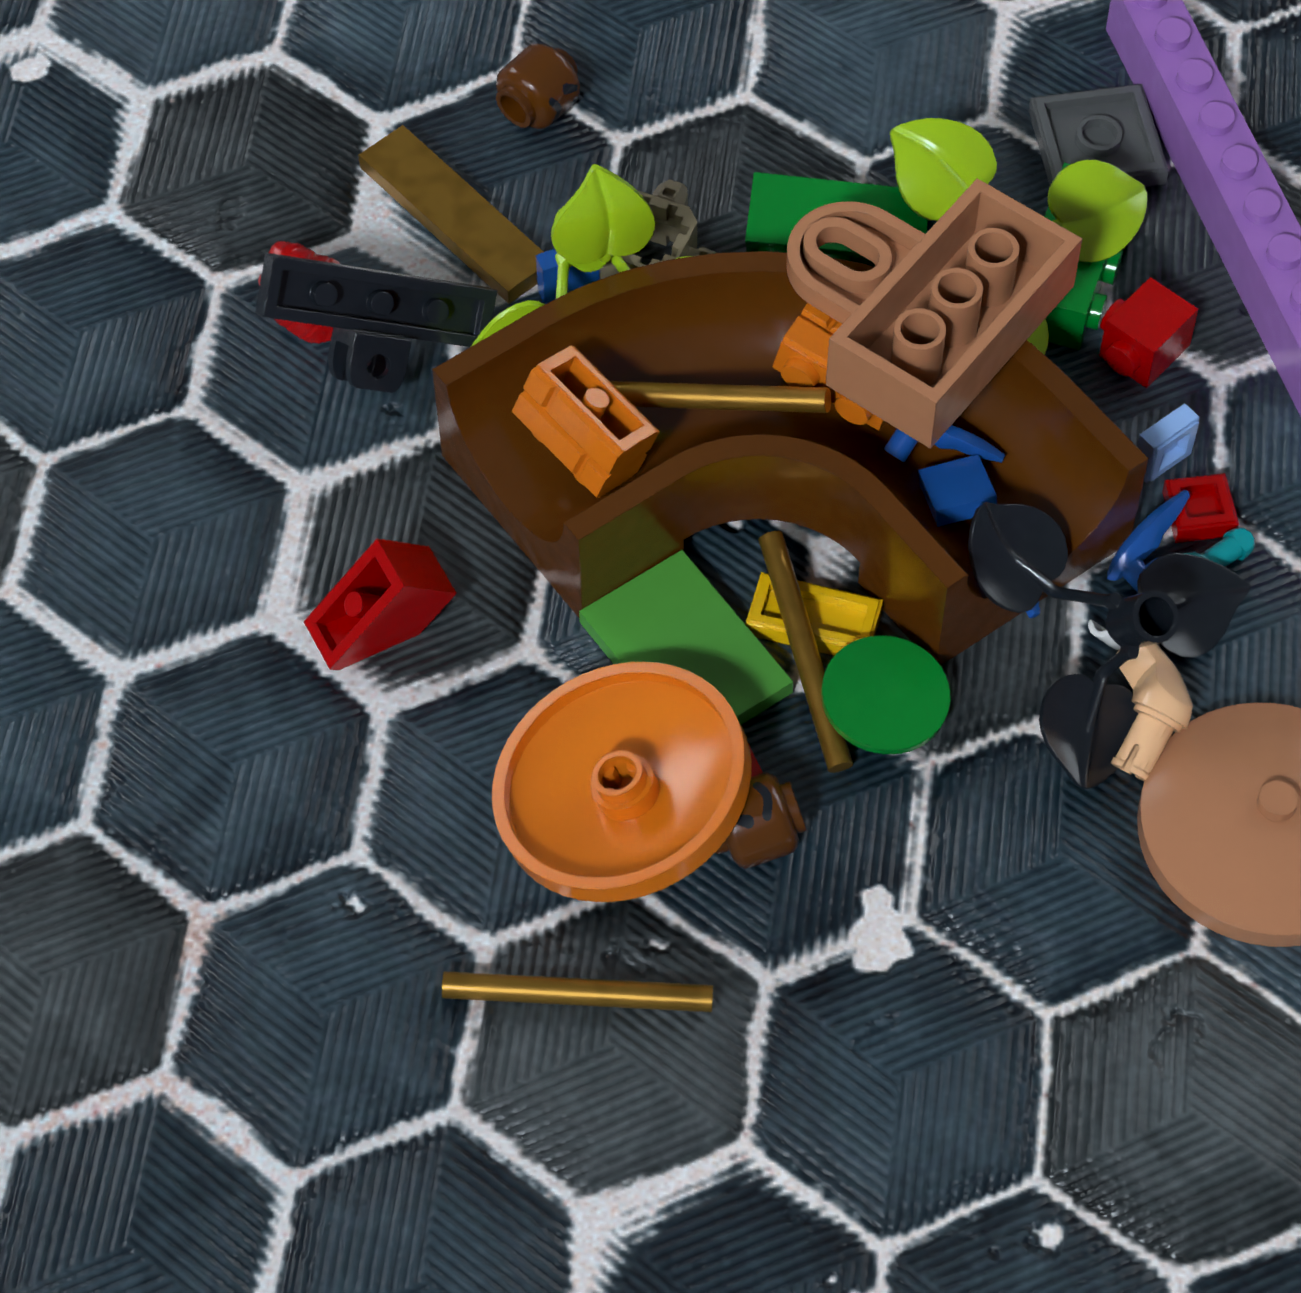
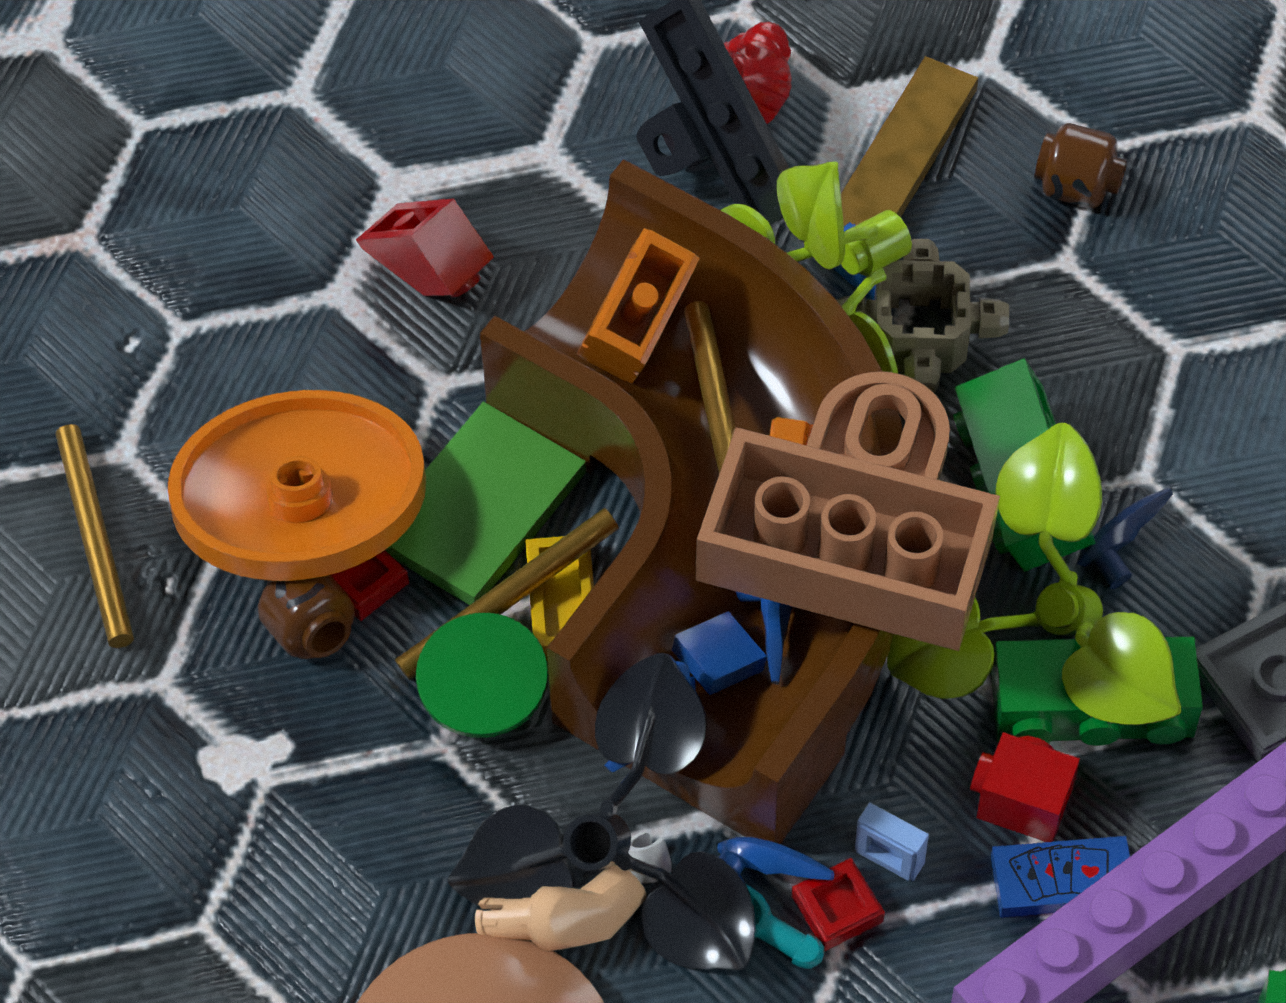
camera: 70 degrees right, 0 degrees up
(1225, 347) = (1051, 874): none -> blue tile

